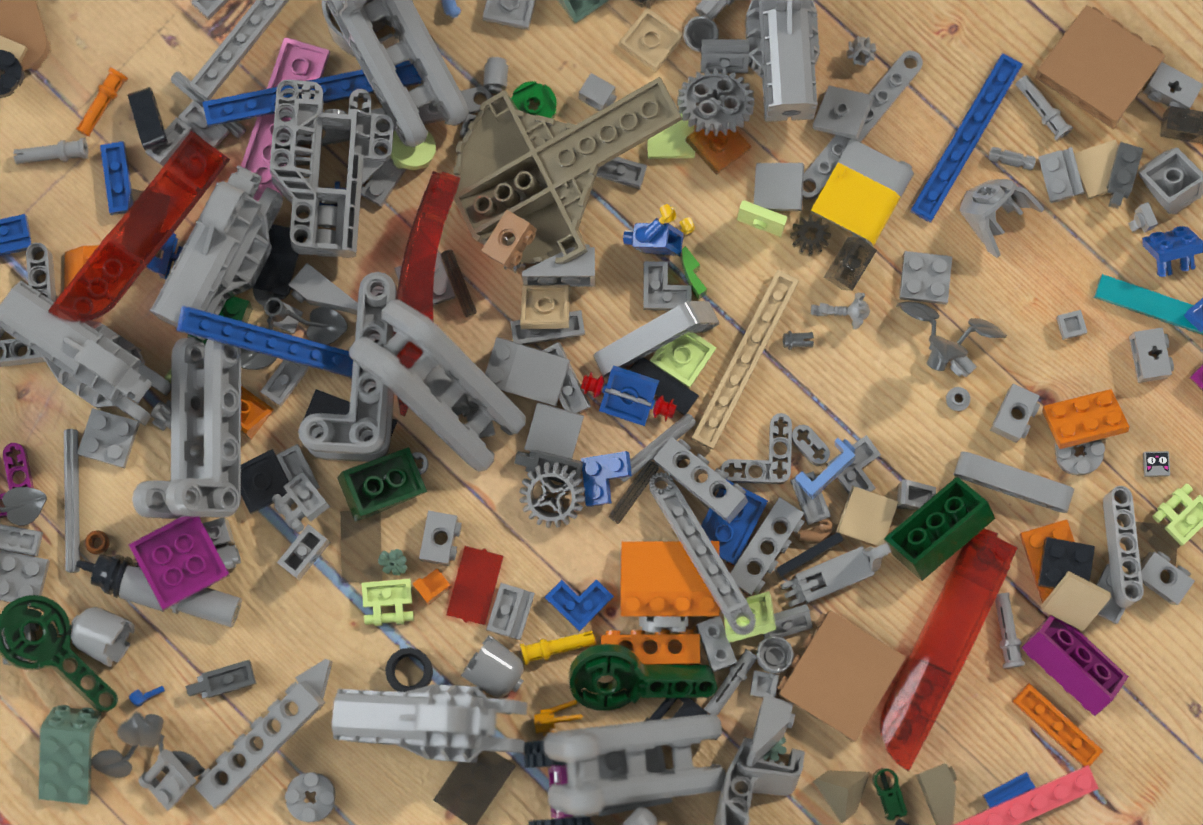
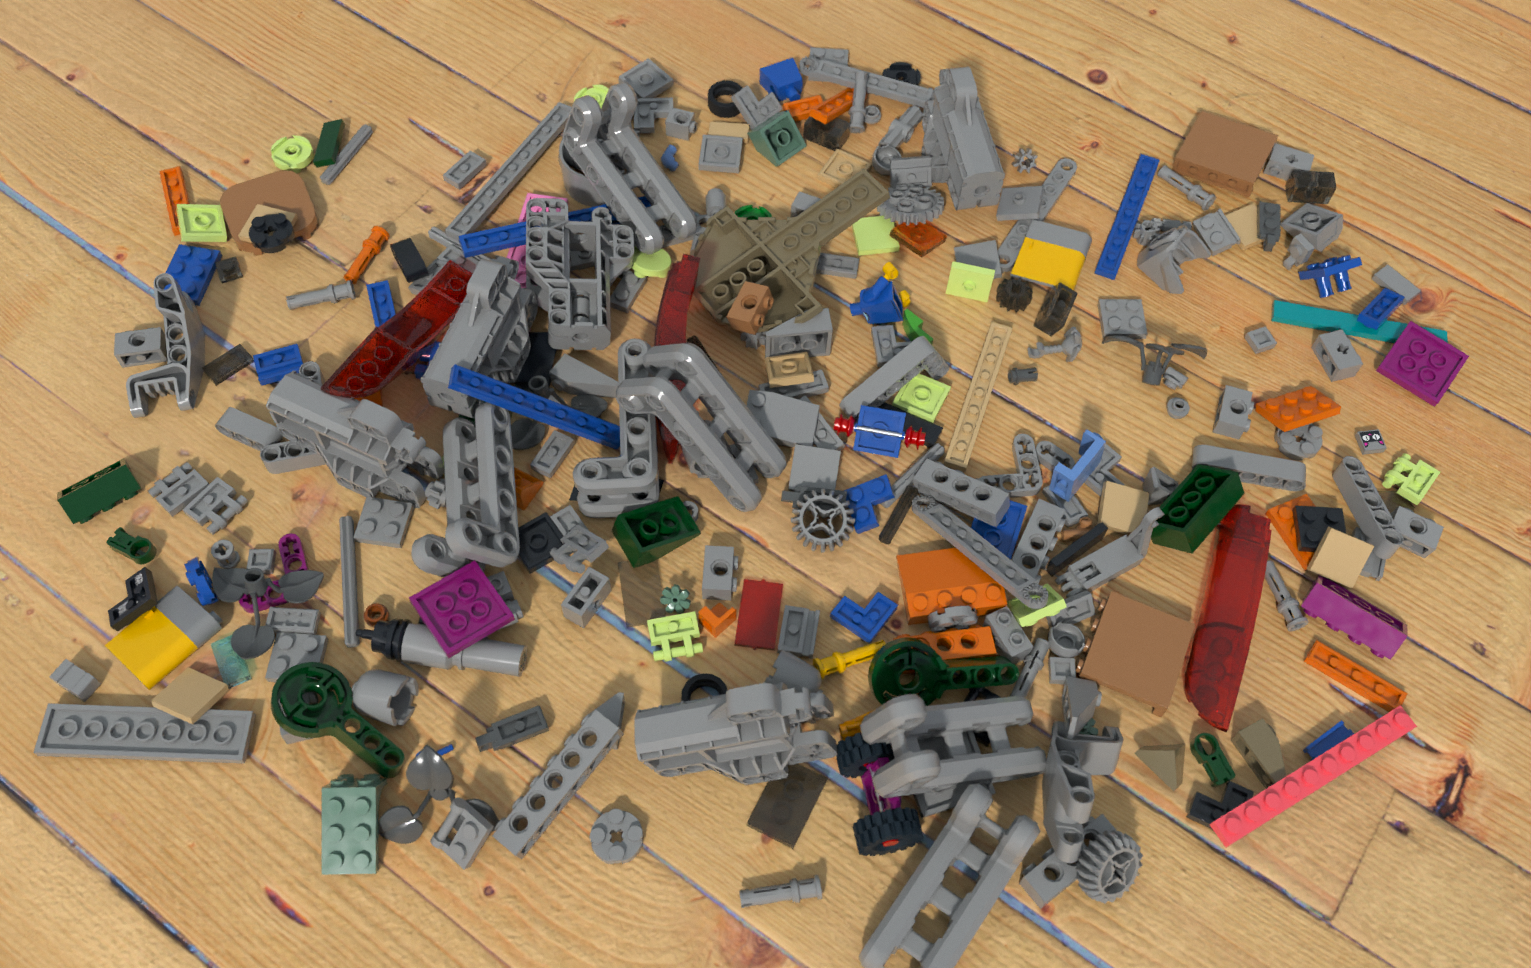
camera: 10 degrees left, 20 degrees down
(983, 173) = (1146, 232): none -> light grey gear

